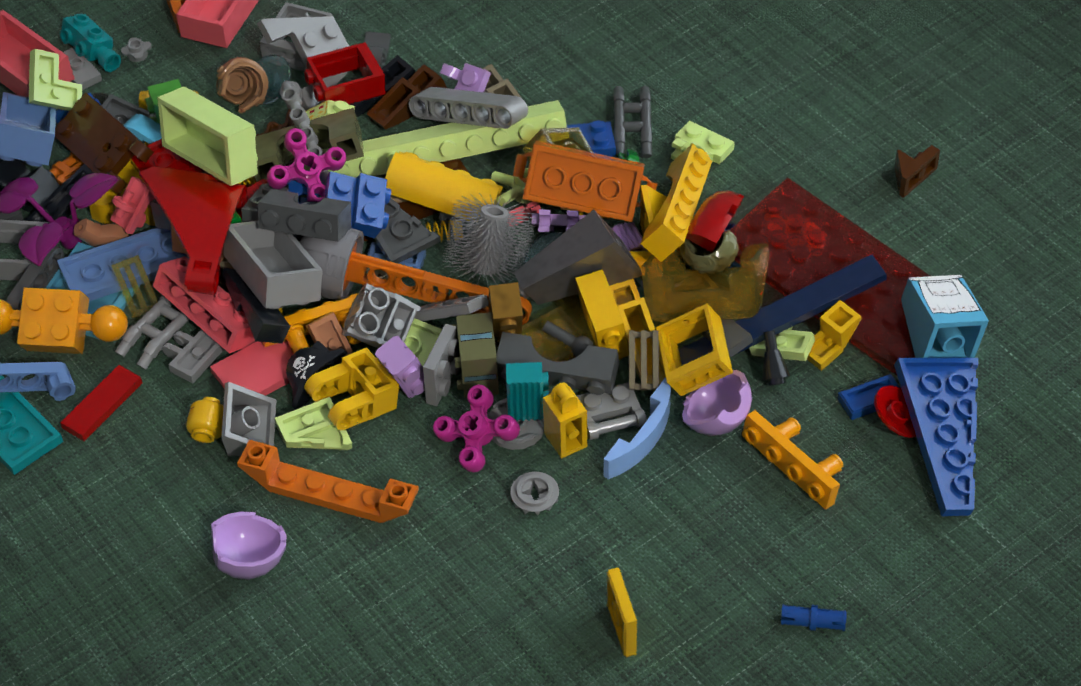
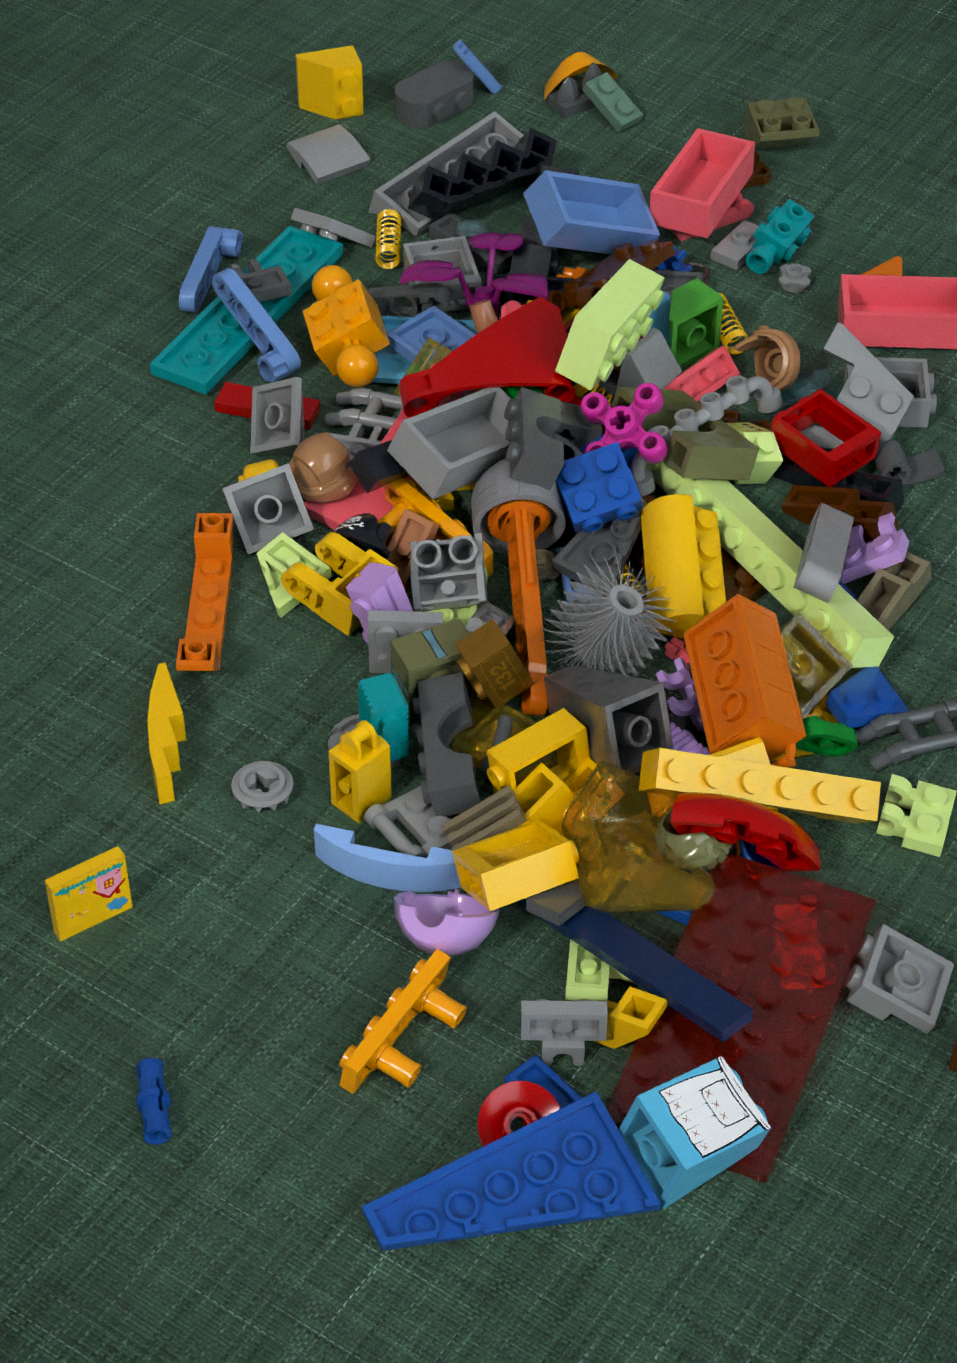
camera: 70 degrees right, 5 degrees down
(45, 85) = (654, 203): yellowish green plate -> none
(146, 387) = (277, 417): none -> light grey slope
(218, 366) = (321, 469): none -> medium nougat helmet
(246, 544) = (95, 557): lavender cylinder -> none
(445, 539) = (164, 731): none -> yellow slope
(476, 428) = (326, 704): dark pink gear -> none
(774, 365) = (544, 969): black cone -> none
(835, 368) = (564, 1026): none -> light grey plate
(841, 191) = (899, 979): none -> light grey plate

